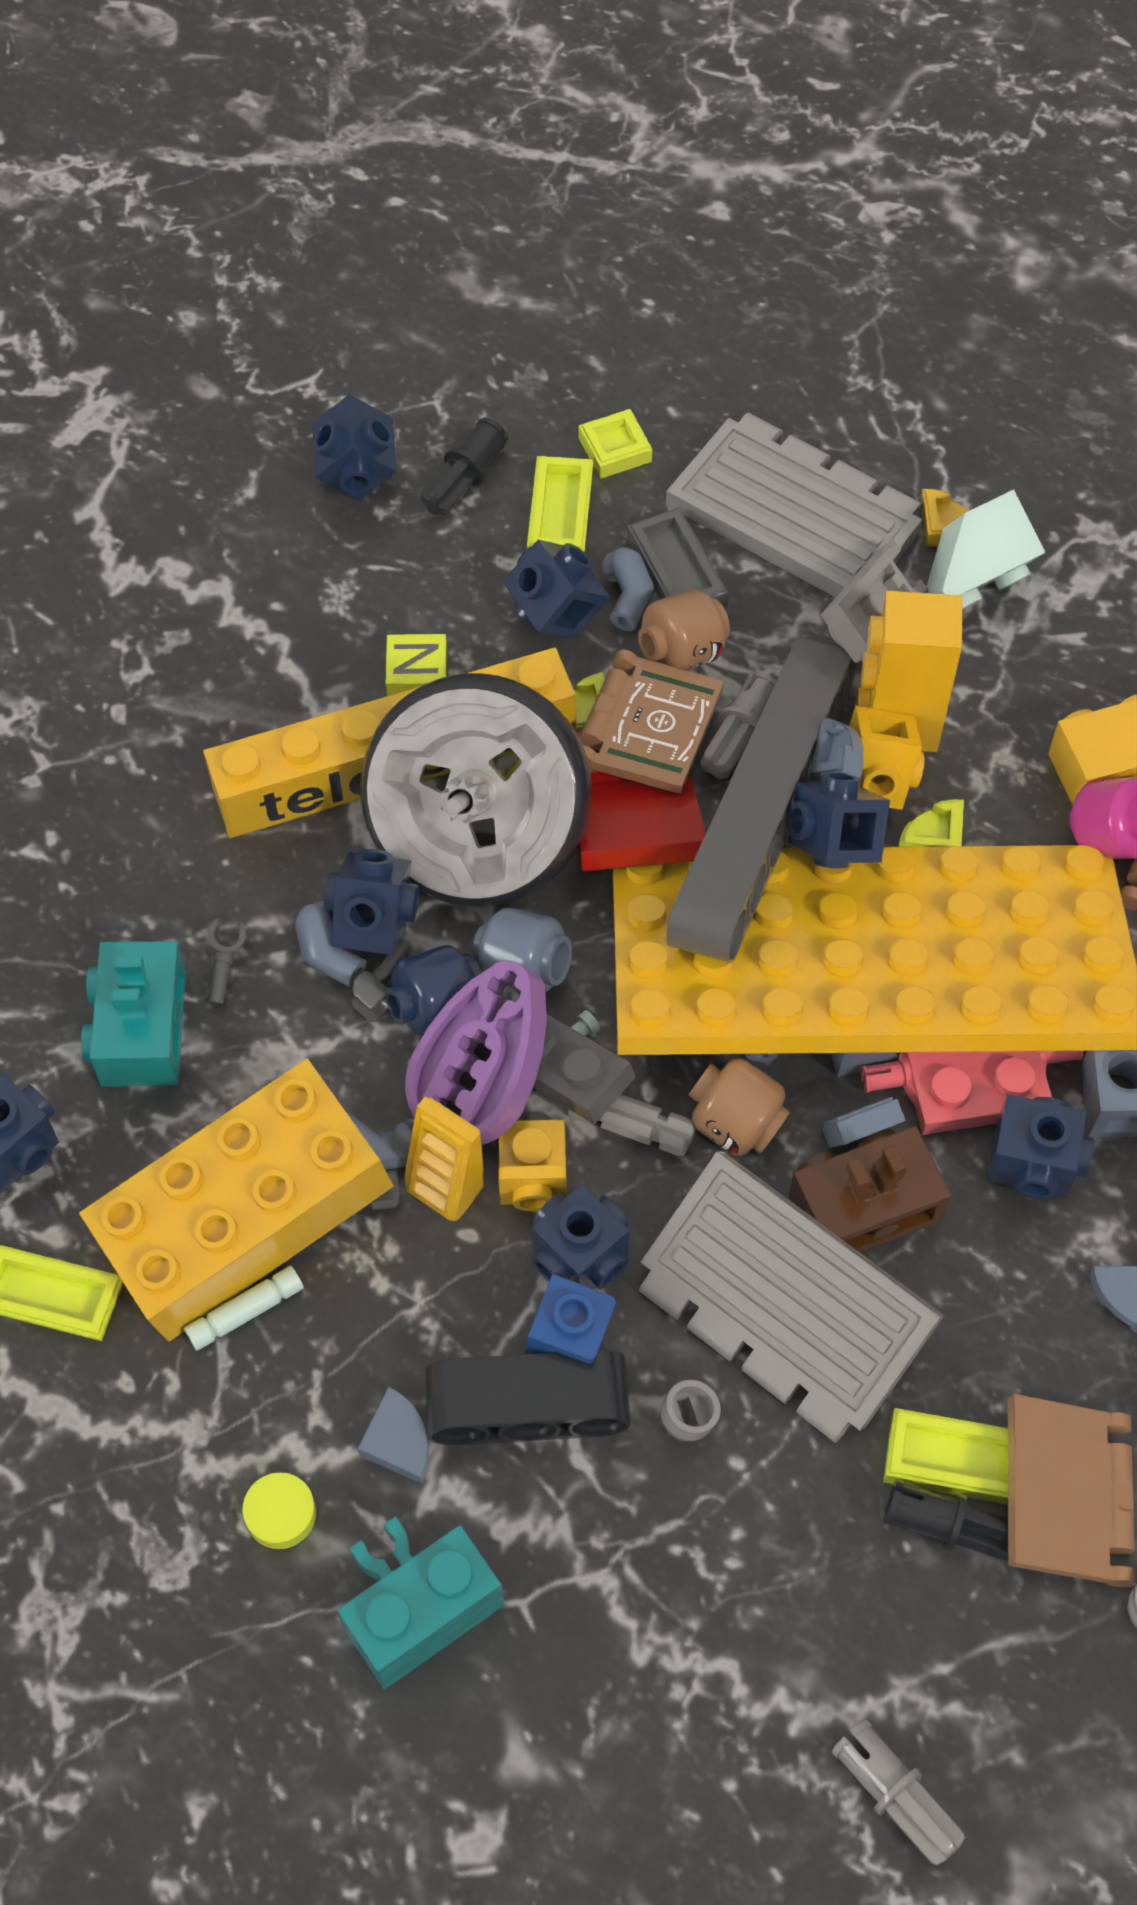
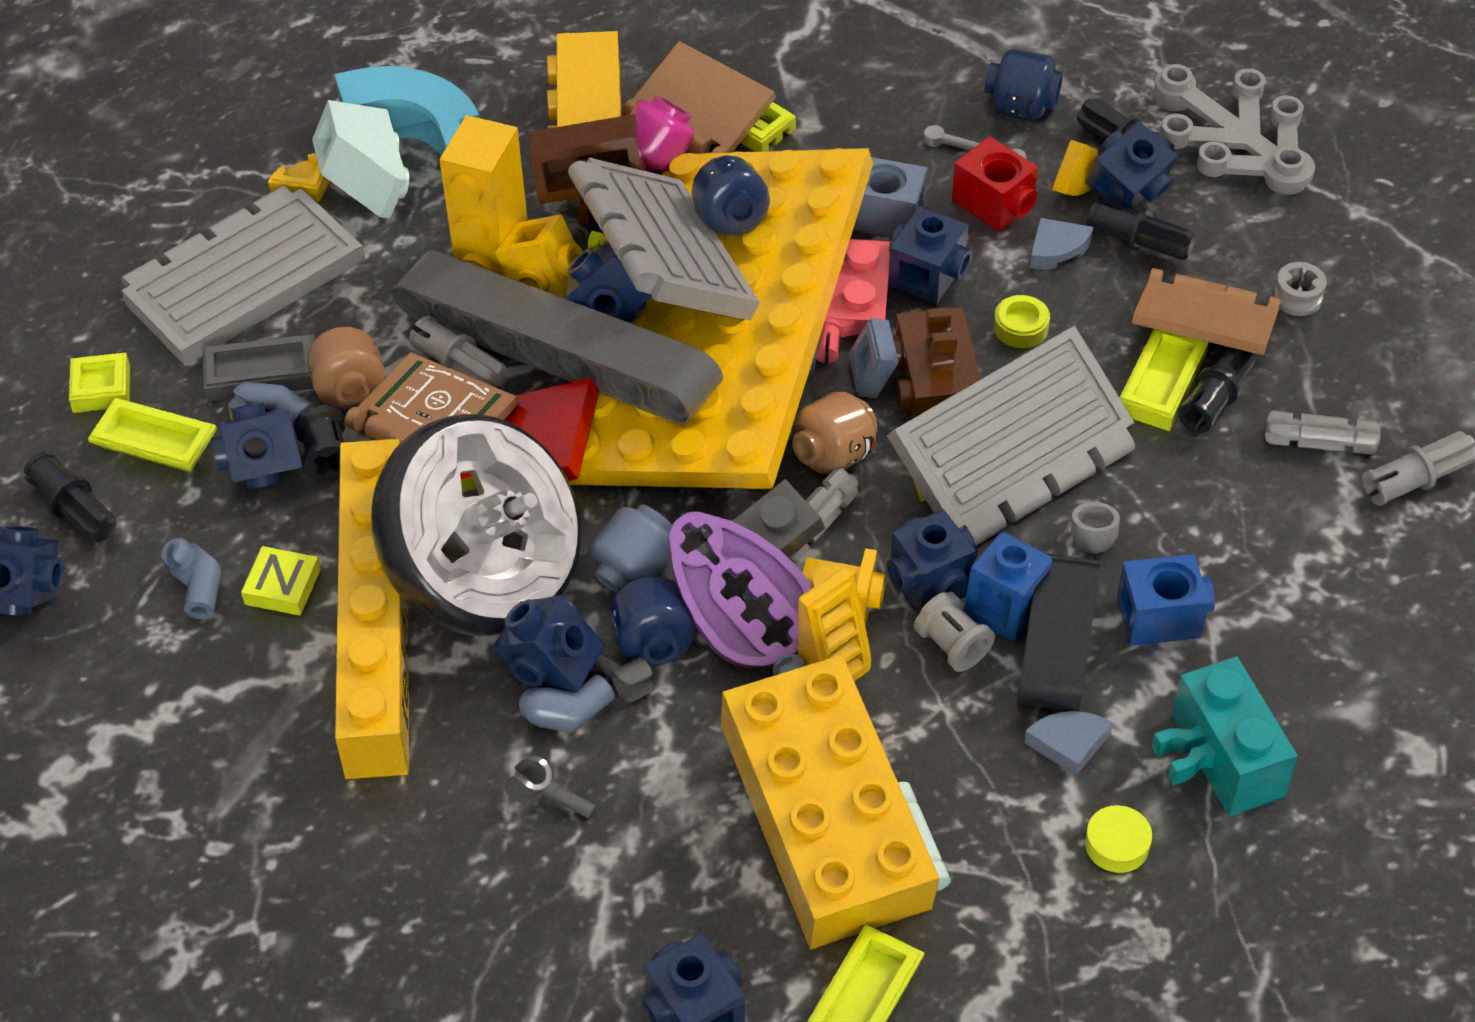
camera: 75 degrees left, 10 degrees down
(136, 1014) = (593, 865): teal brick -> none
(408, 595) = (197, 572): none -> sand blue arm
(501, 1287) = (954, 631): none -> light grey bush
(586, 642) = (322, 435): none -> black bush
(600, 1474) = (1164, 599): none -> blue brick
(837, 751) = (543, 267): sand blue tile -> none
(864, 596) = (387, 227): light grey hinge -> none
(906, 846) = (663, 239): none -> light grey hinge
(925, 1663) = (1322, 432): none -> light grey axle
(992, 1279) = (1021, 321): none -> neon yellow tile
(1007, 902) = (730, 195): none -> dark blue head
(1028, 755) = (557, 148): none -> reddish brown brick
(1079, 577) = (416, 100): none -> medium azure arch

